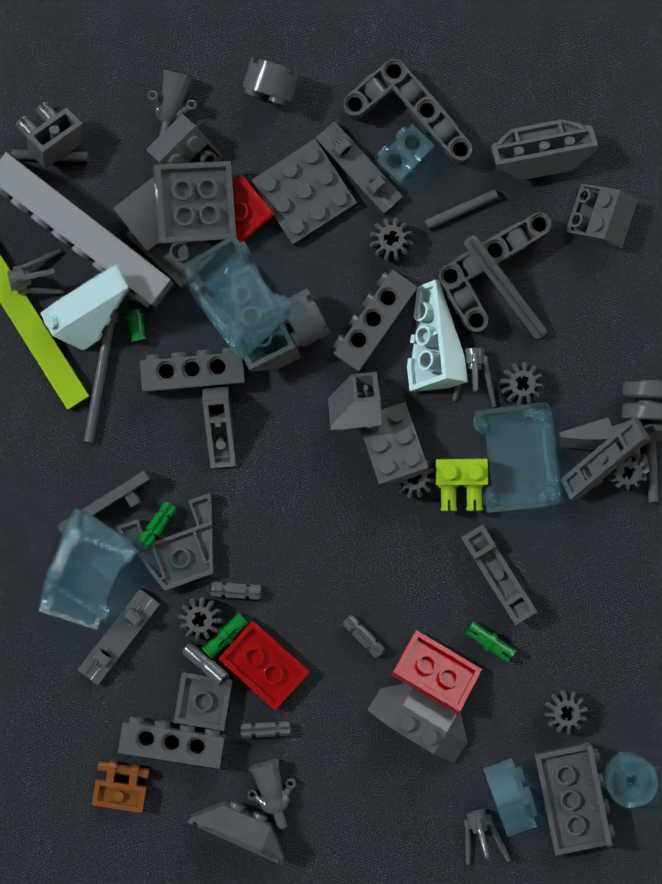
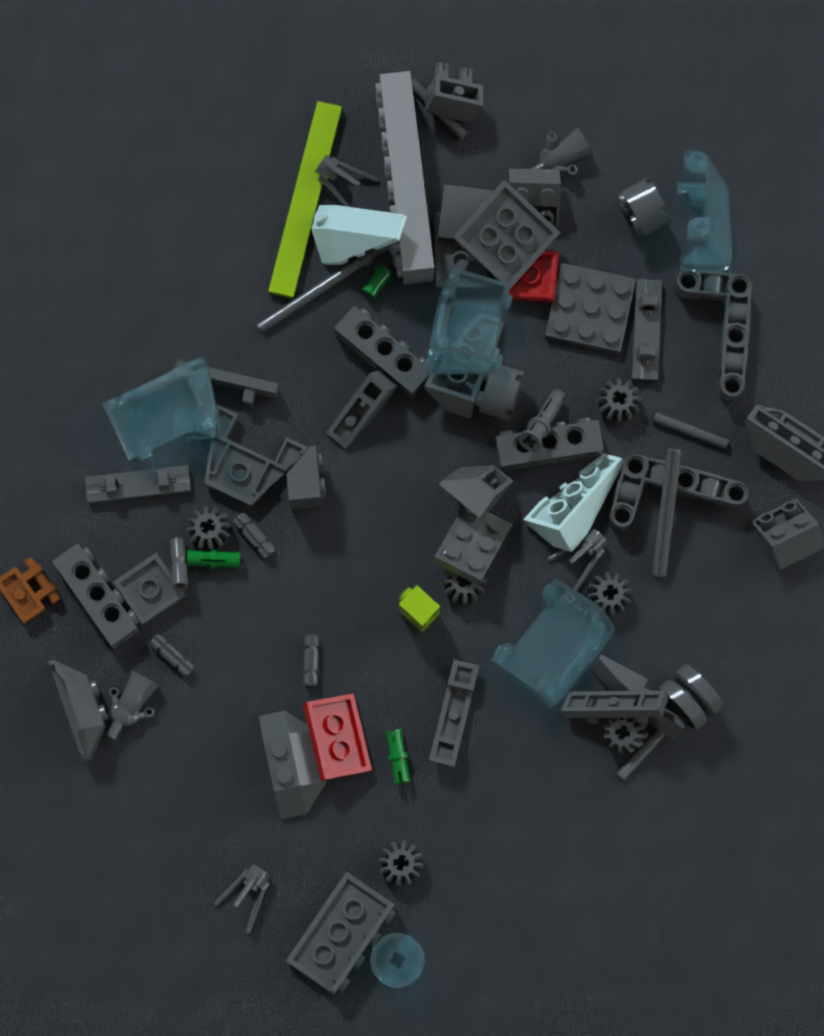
camera: 40 degrees right, 10 degrees down
(157, 524) = (247, 432): green axle -> none
(233, 519) = (303, 481): none -> dark grey slope
(263, 665) = (219, 607): red plate -> none
(343, 59) = (708, 237): none -> clear light blue windscreen
(357, 316) = (539, 426): none -> dark grey pin
(402, 528) = (418, 607): none -> lime brick
(408, 157) = (689, 358): clear light blue brick -> none
(456, 472) = (501, 612): lime brick -> none
(512, 800) = (297, 883): clear light blue brick -> none

